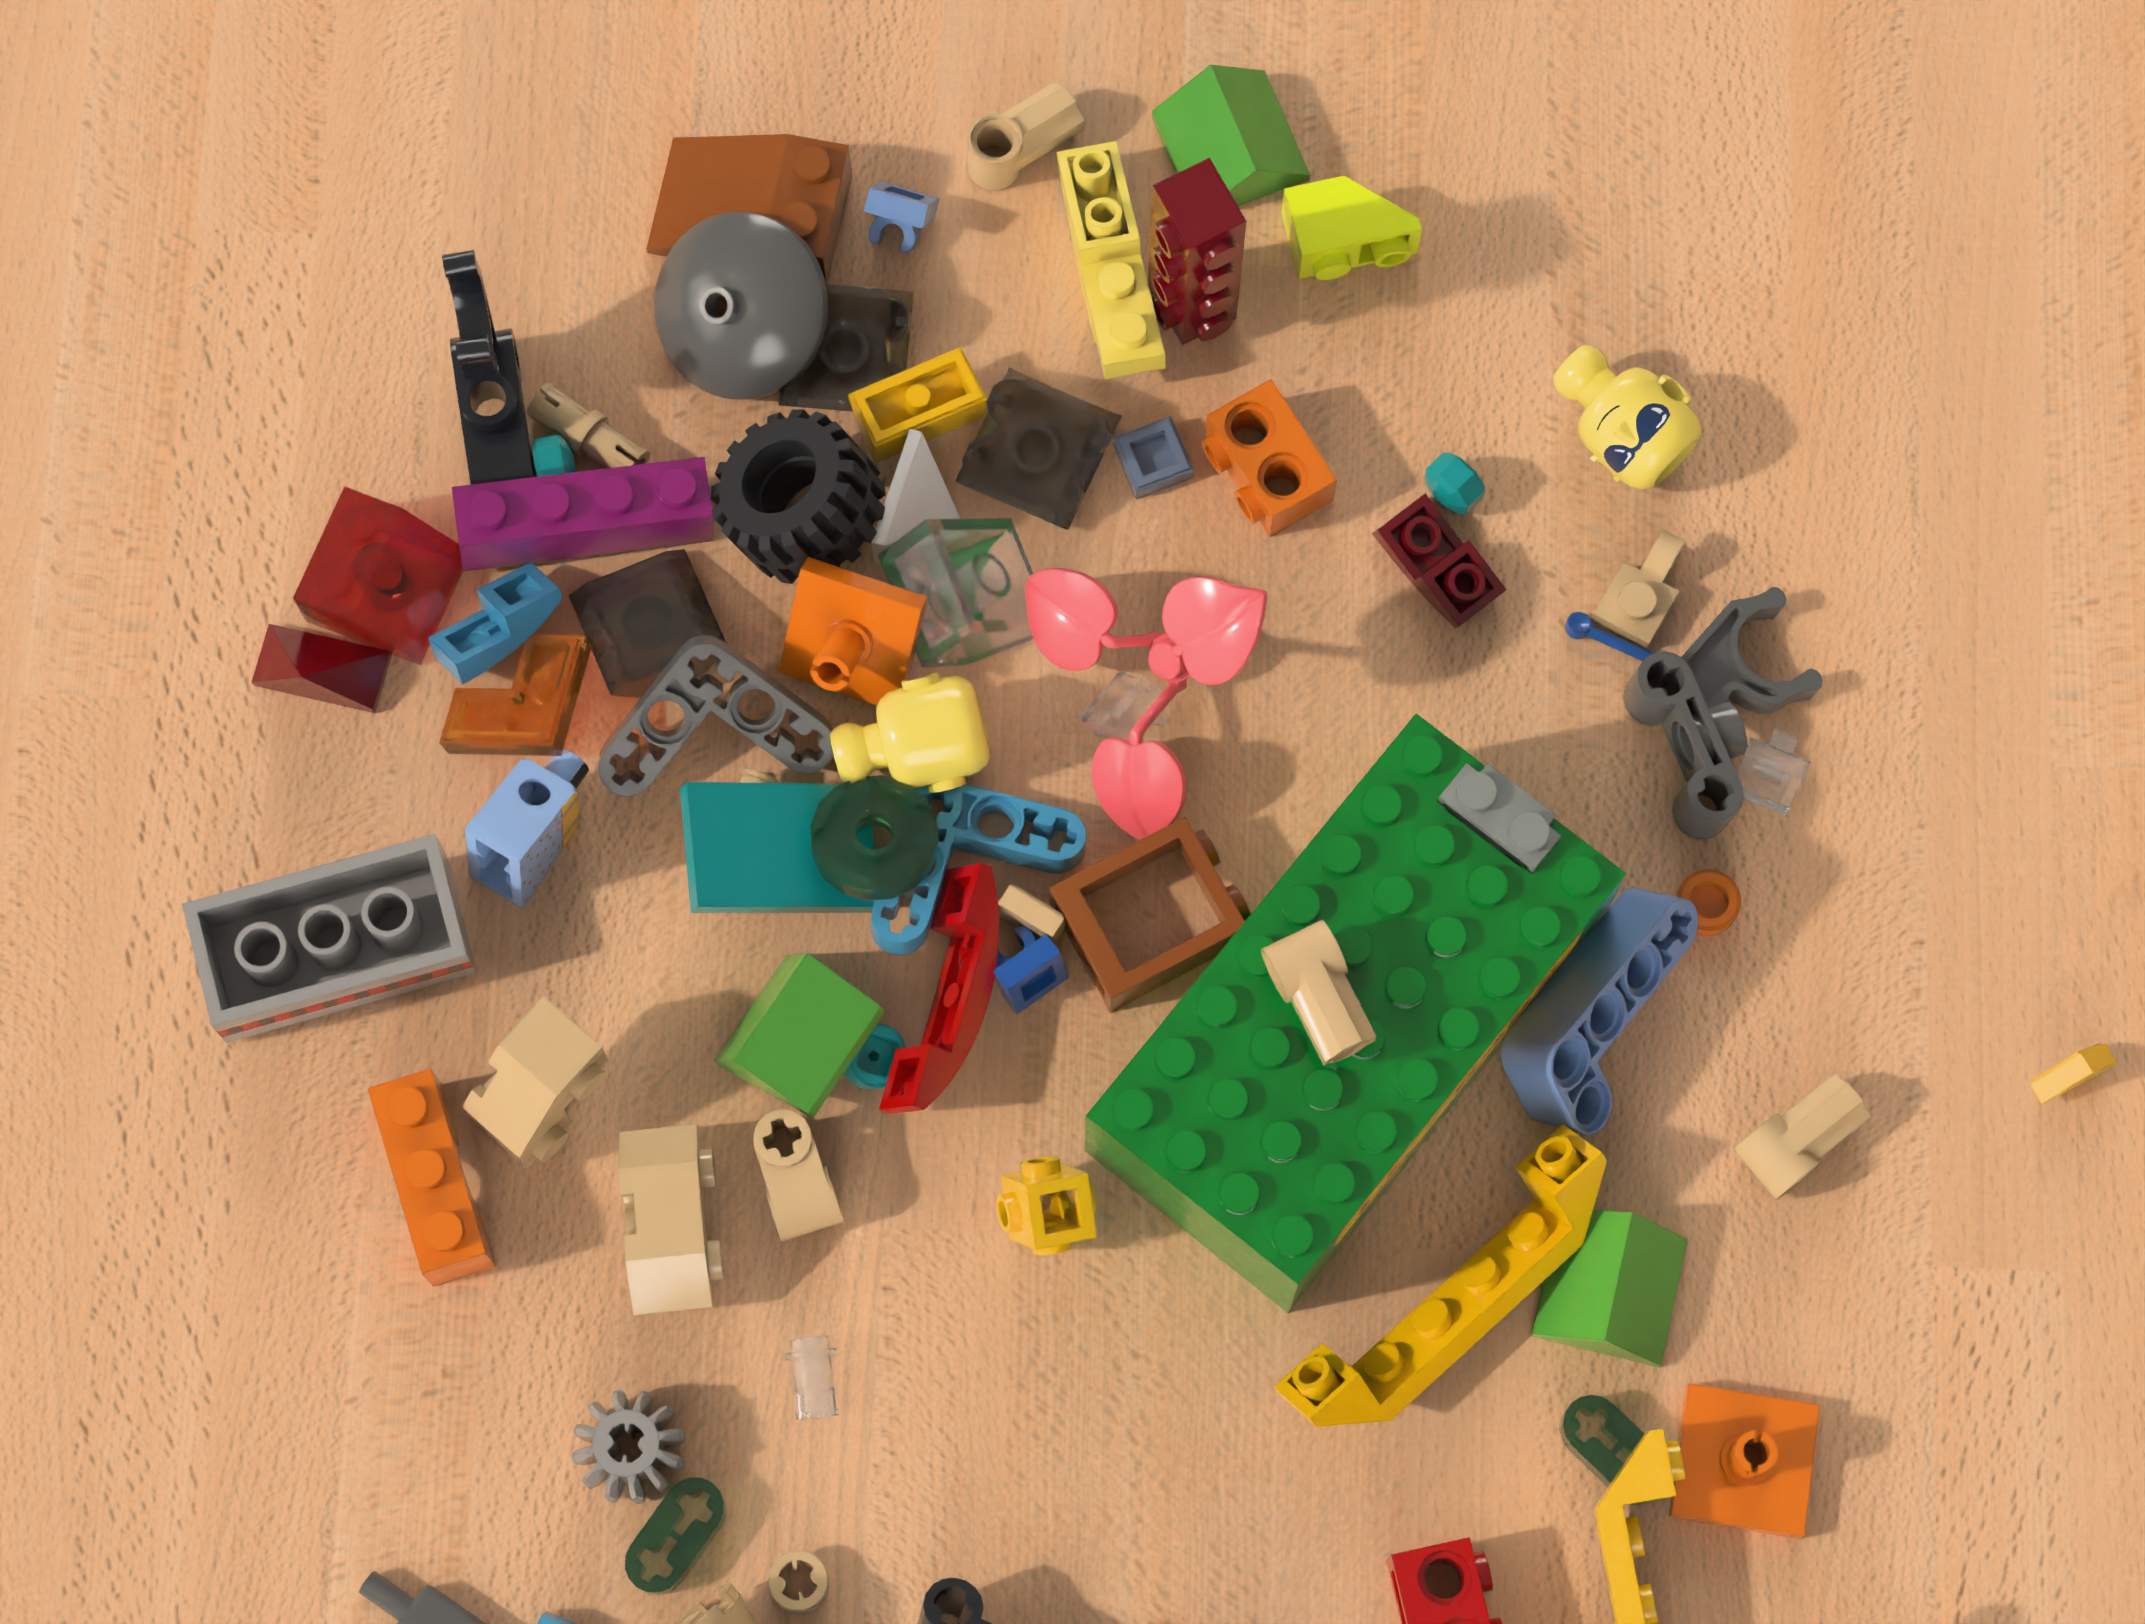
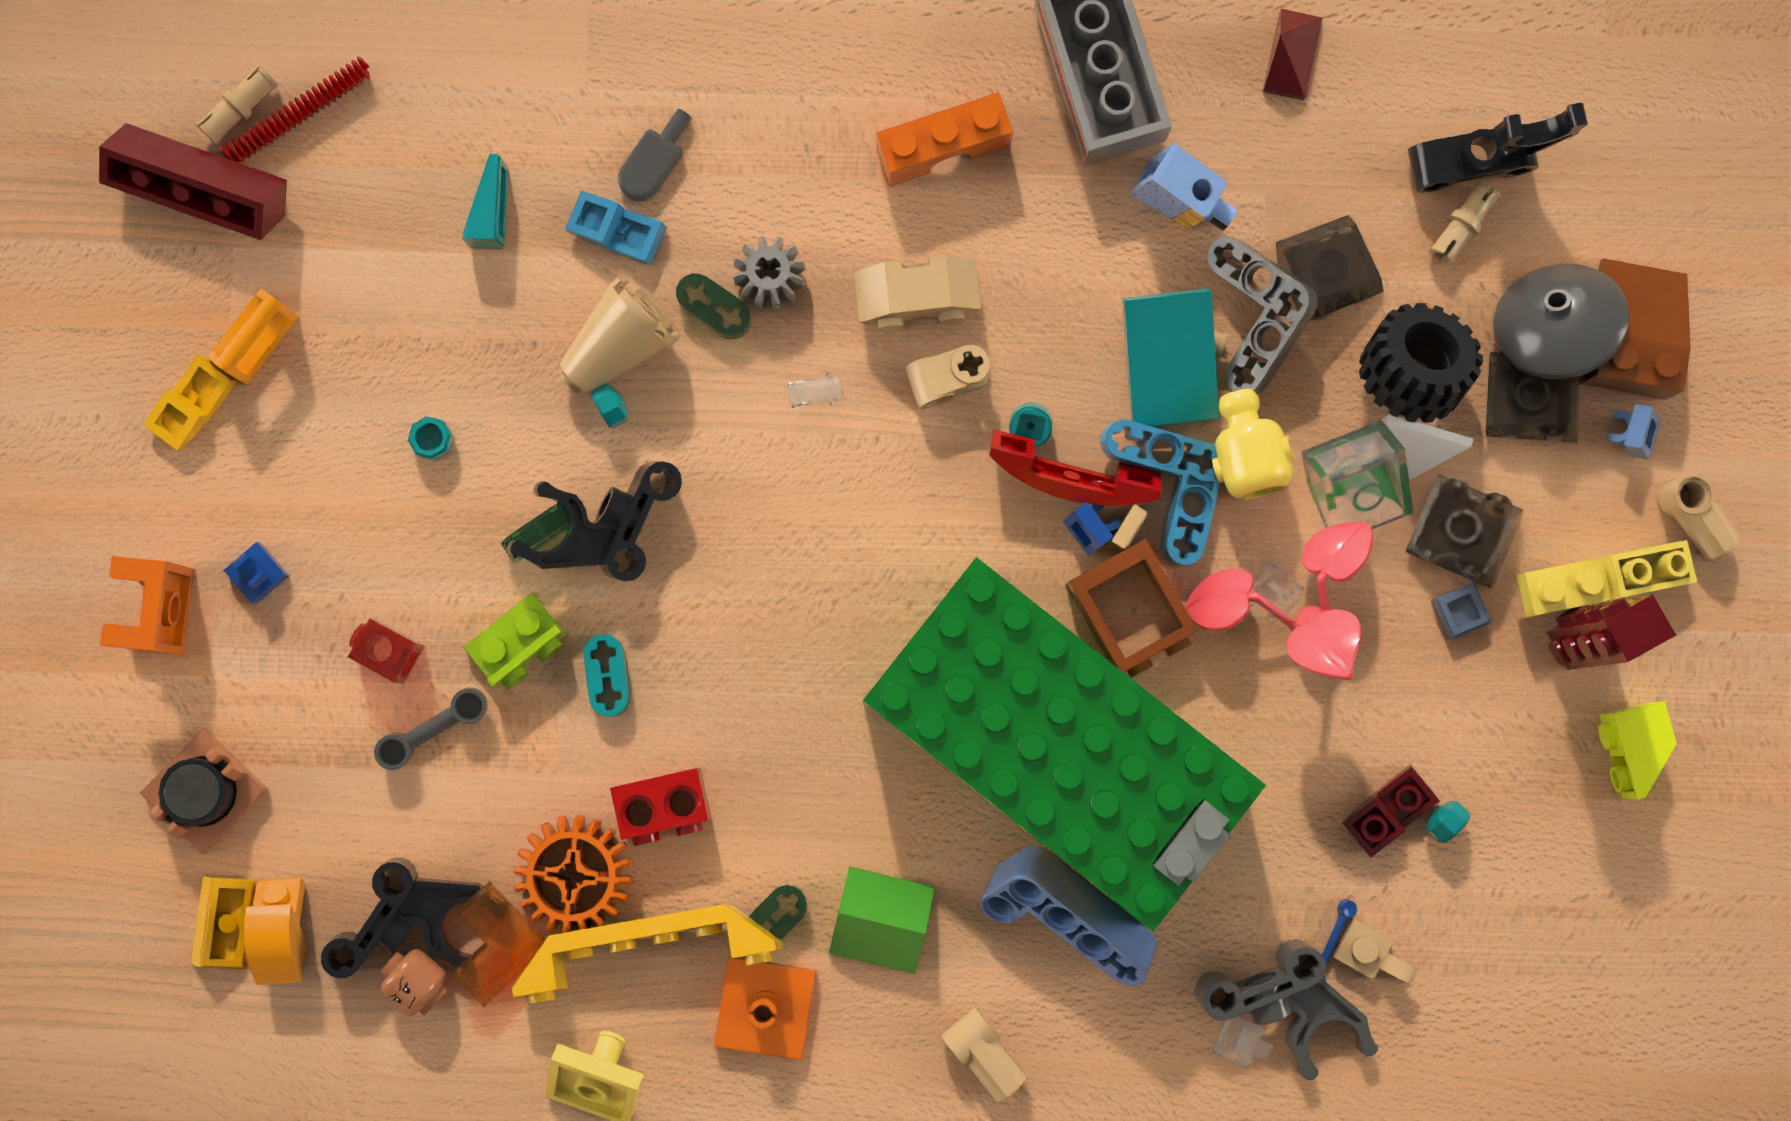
camera: 85 degrees right, 10 degrees up
(379, 576) = (1356, 87): clear red slope -> none
(510, 614) = (1334, 177): dark azure slope -> none
(530, 715) = (1261, 191): clear orange tile -> none
(537, 1075) = (1006, 199): tan brick -> none
(552, 456) = (1438, 199): teal tile -> none
(583, 514) = (1404, 217): magenta brick -> none
(800, 1033) = (1042, 375): bright green slope -> none
(818, 1578) = (681, 372): tan bush -> none
(851, 632) = (1323, 401): orange tile -> none
(871, 872) = (1154, 426): clear green tile -> none
(924, 398) = (1495, 446): yellow slope -> none
(1065, 1211) = (927, 552): yellow brick -> none
(1238, 125) = (1705, 665): bright green slope -> none
(1282, 453) = (1465, 699): orange brick -> none
(1312, 976) = (1067, 710): tan piece -> none
(1564, 1182) = (865, 820): yellow slope -> none
(1630, 420) = (1498, 948): light yellow piece -> none
(1715, 900) = (1151, 997): orange tile -> none

